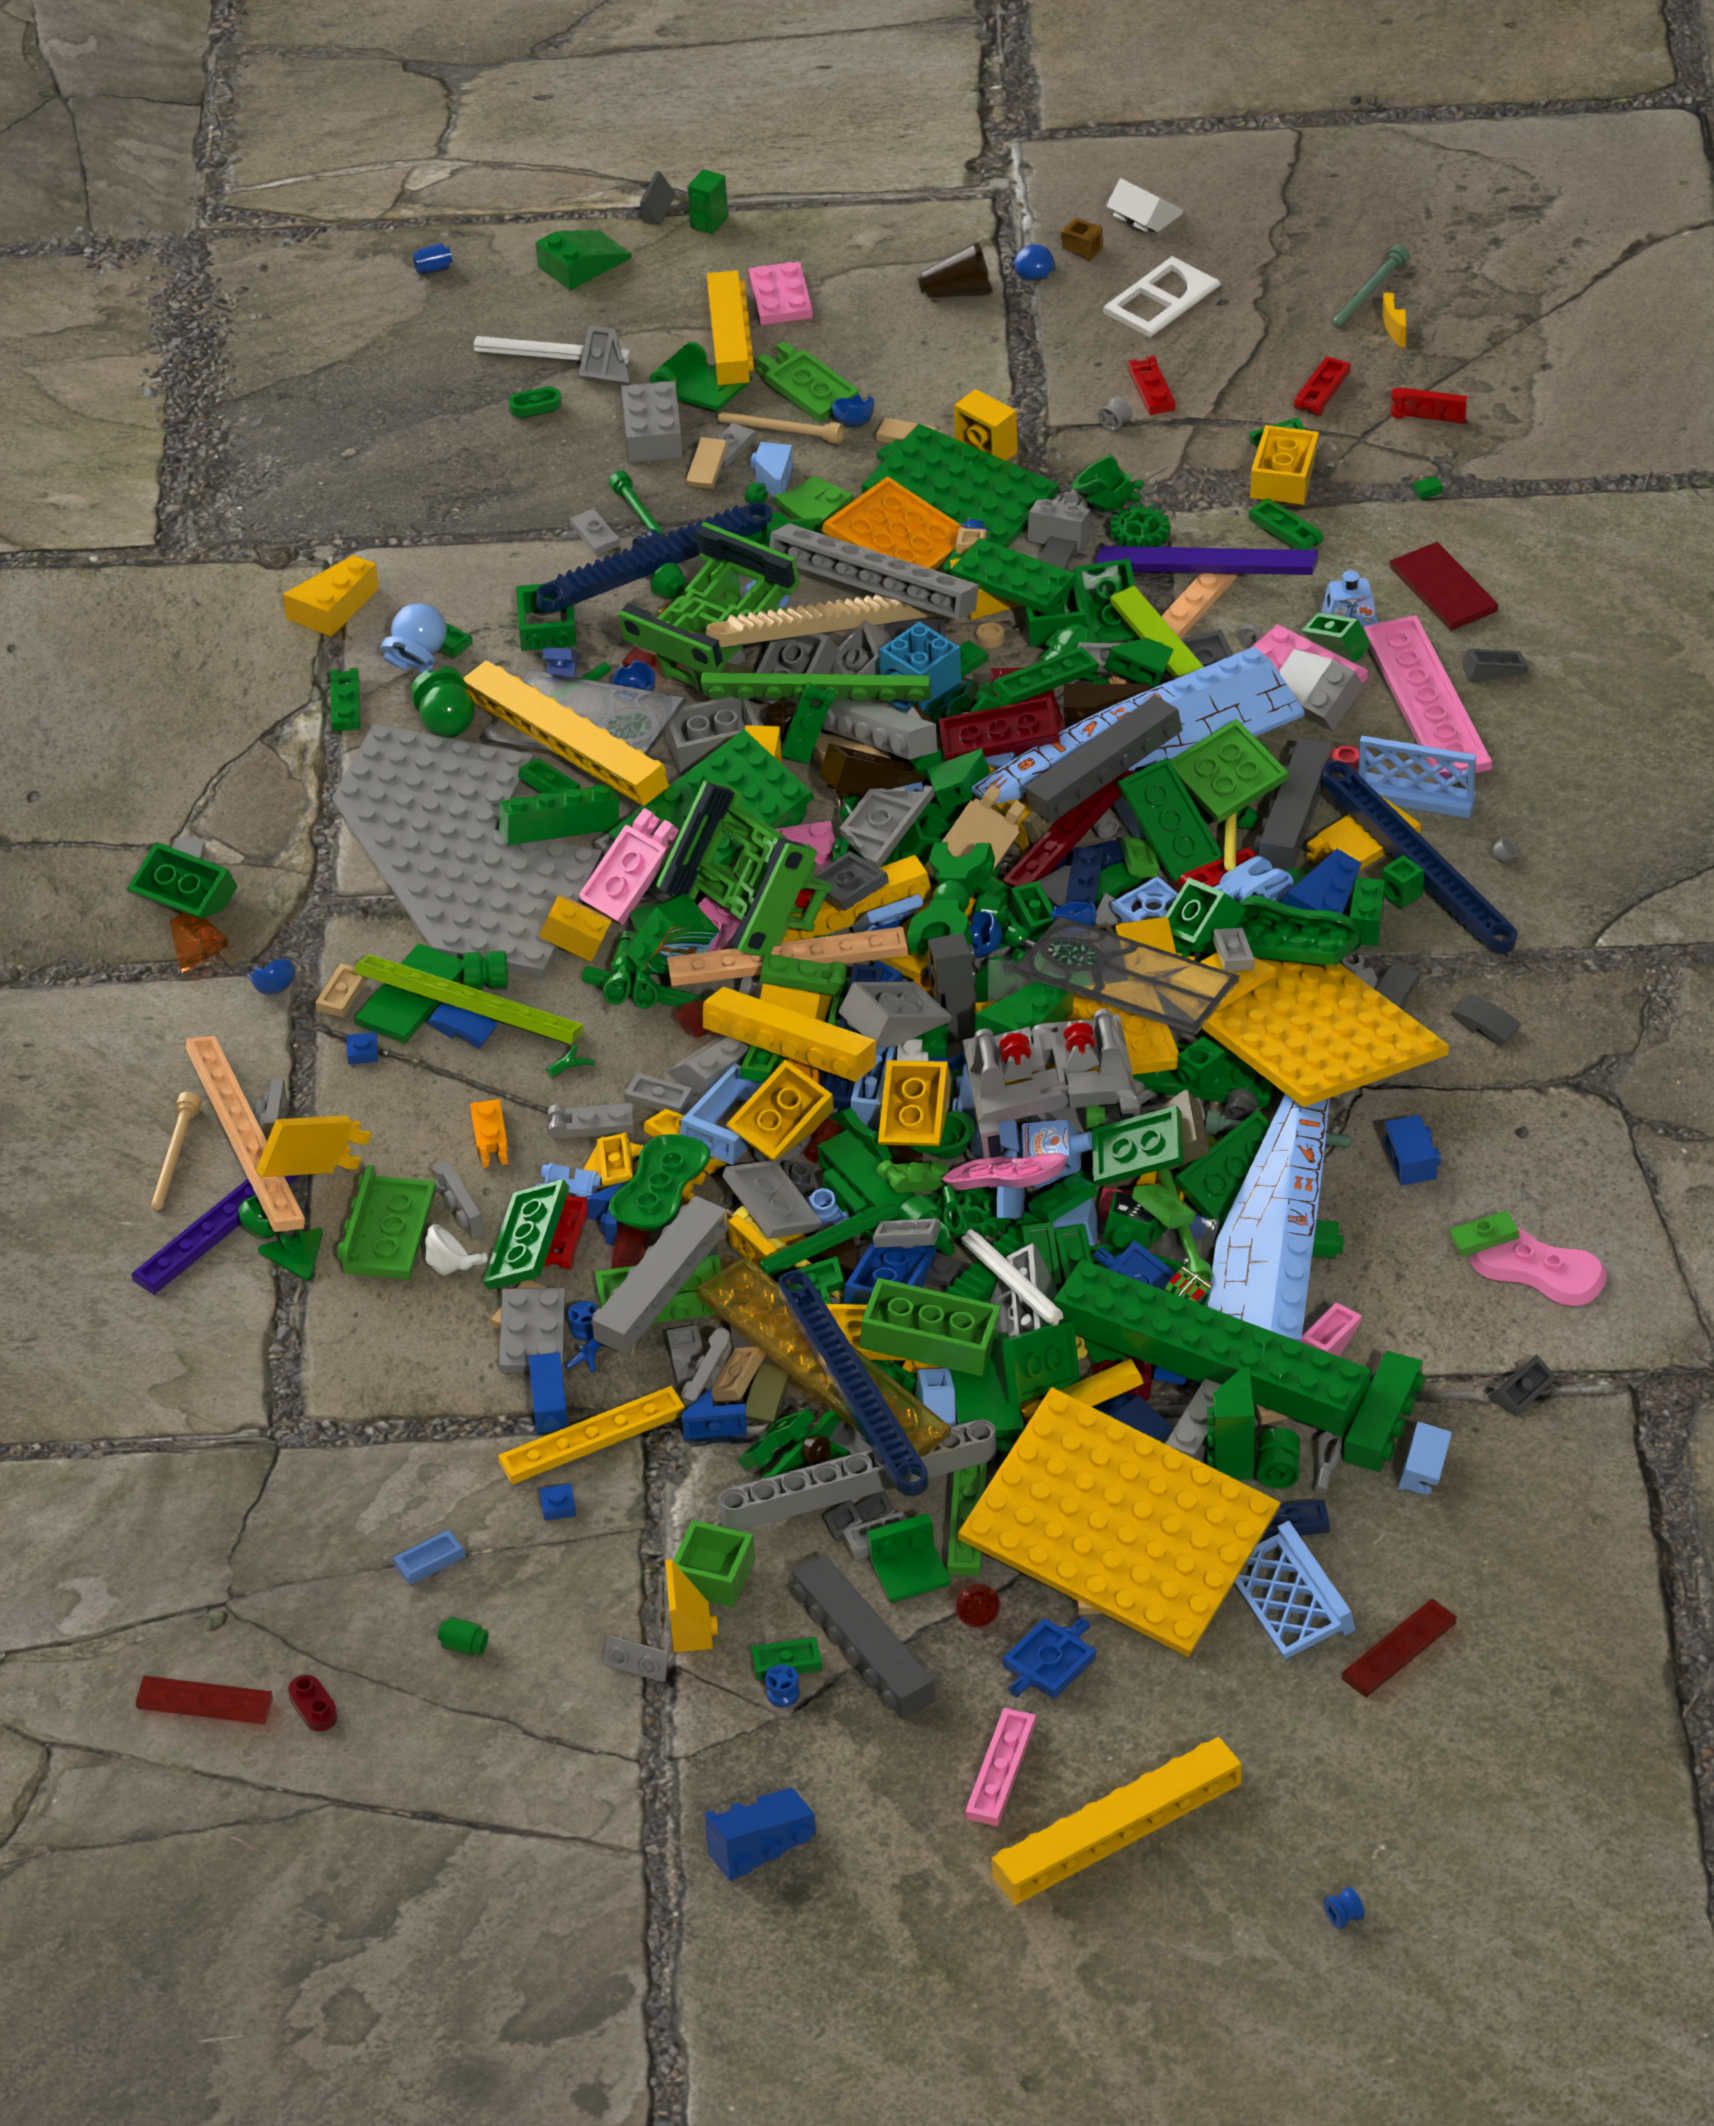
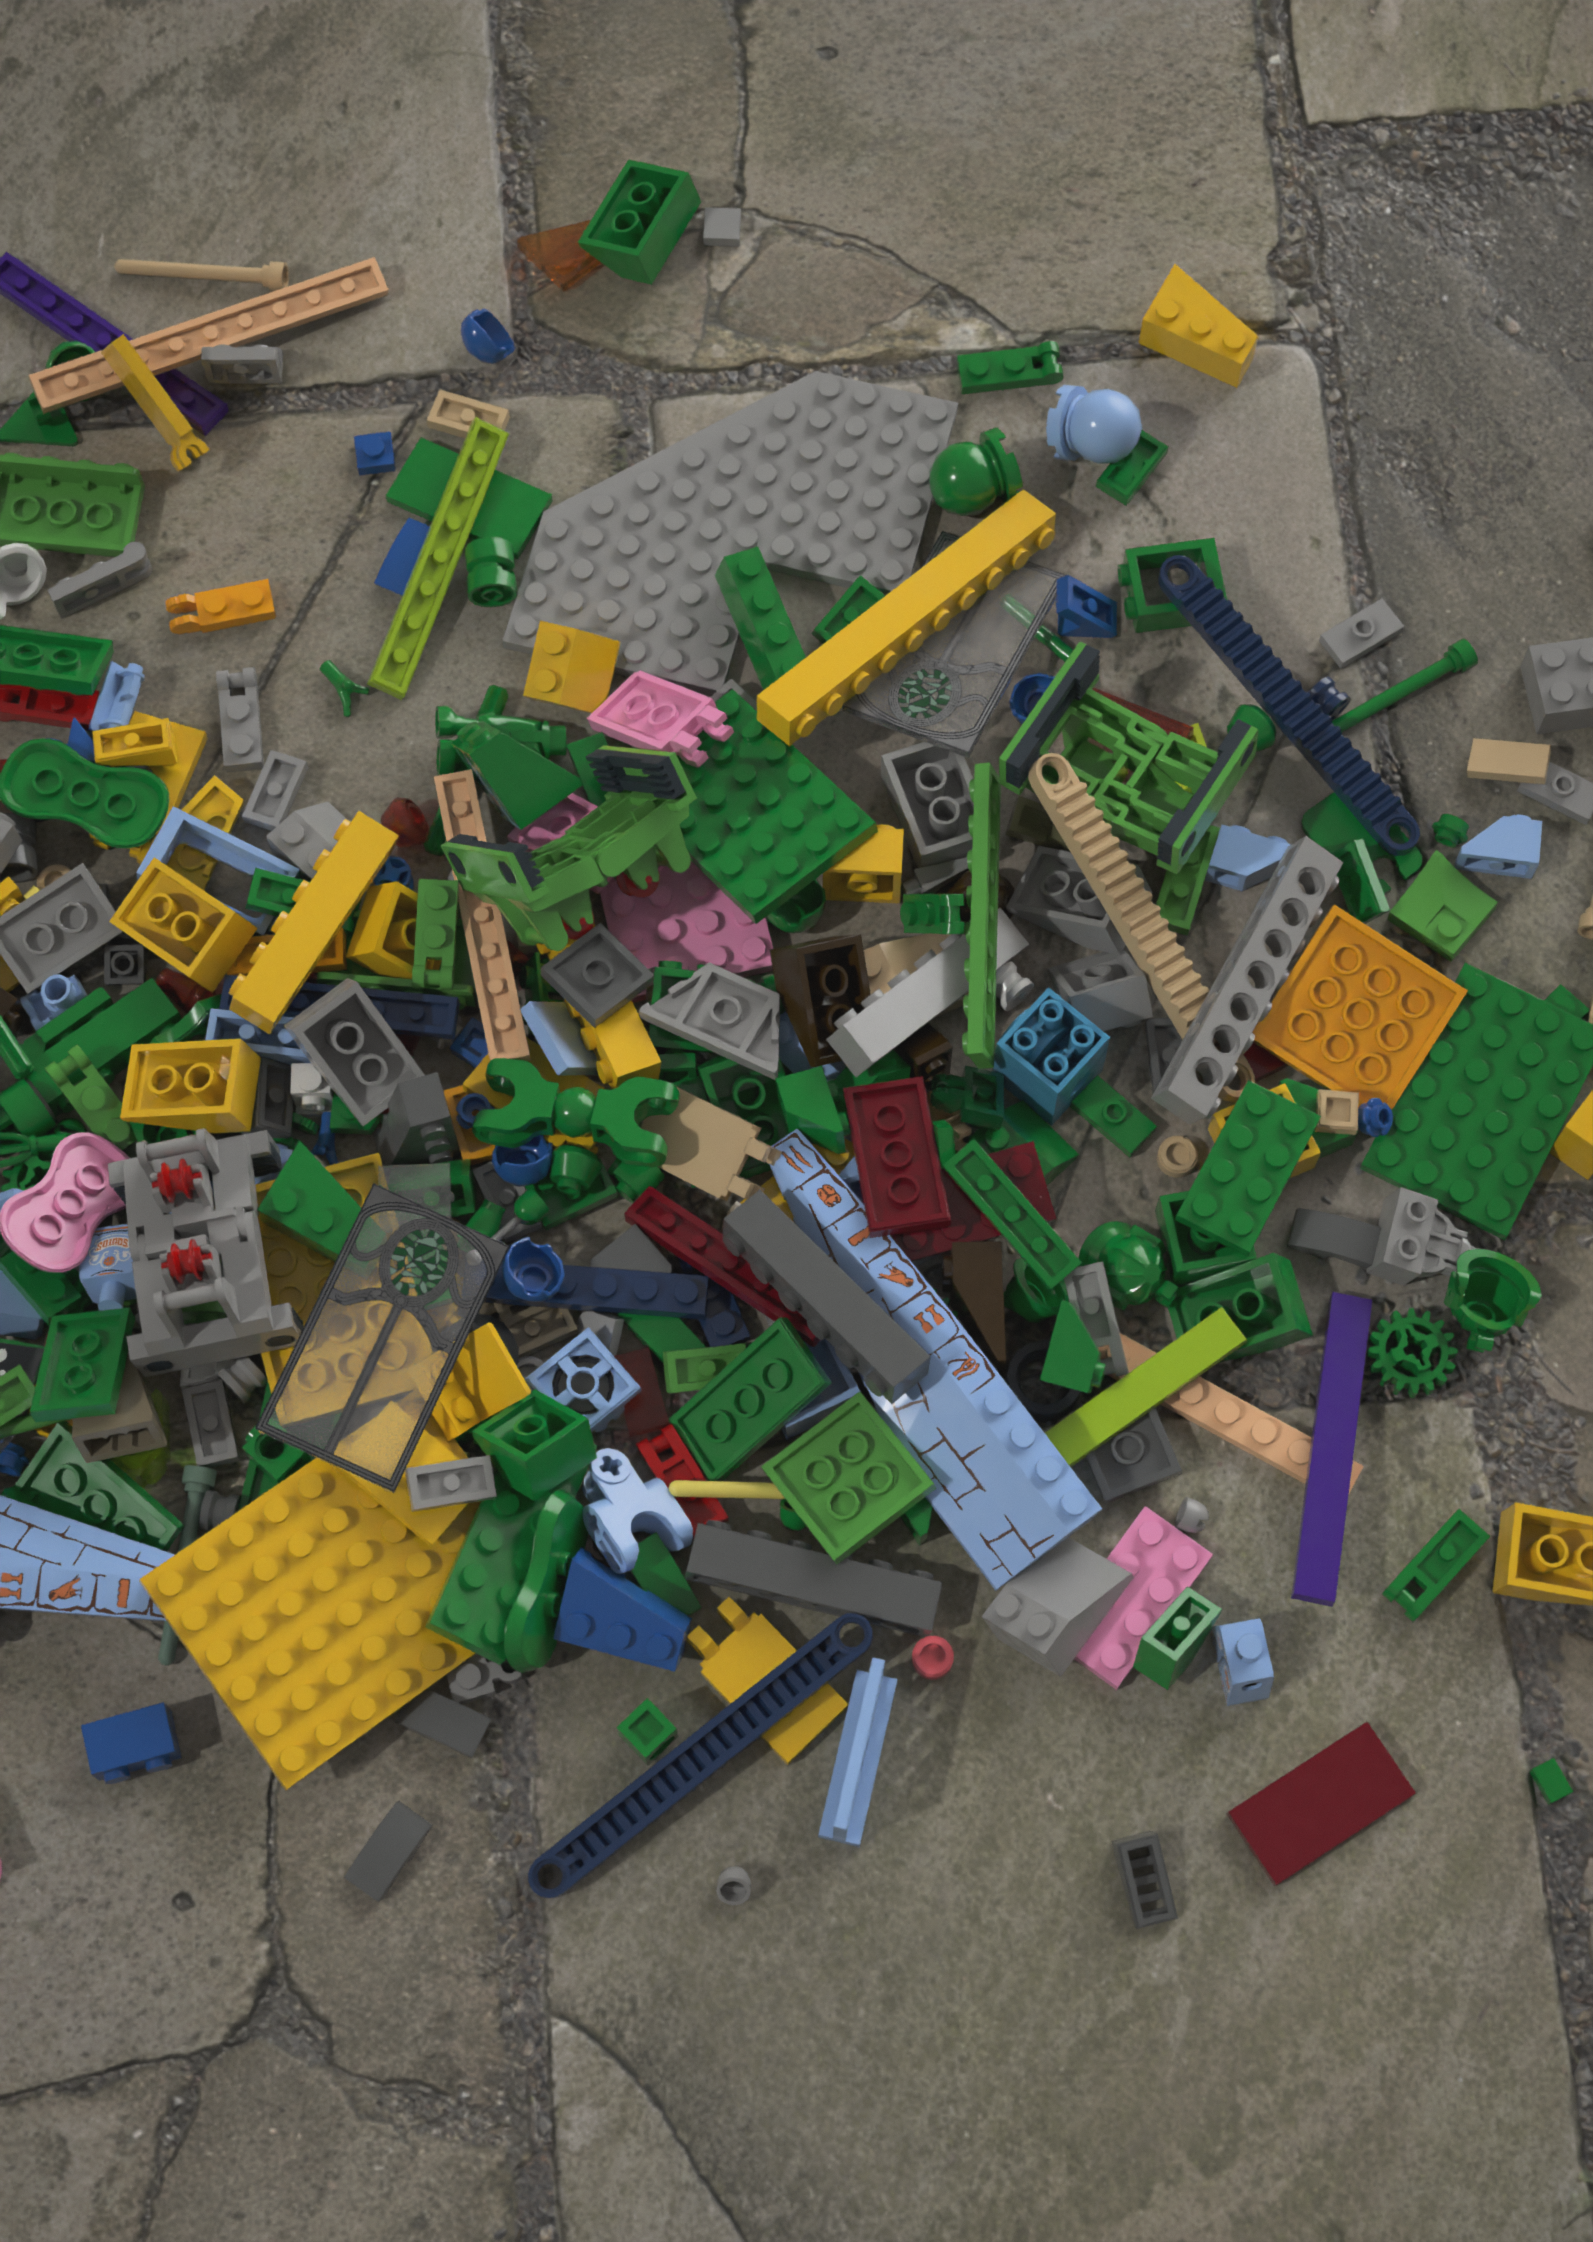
camera: 85 degrees right, 25 degrees up
(1031, 909) = (580, 1228): green brick -> none
(1368, 908) = (595, 1682): green brick -> none
(1424, 691) = (1060, 1773): bright pink plate -> none

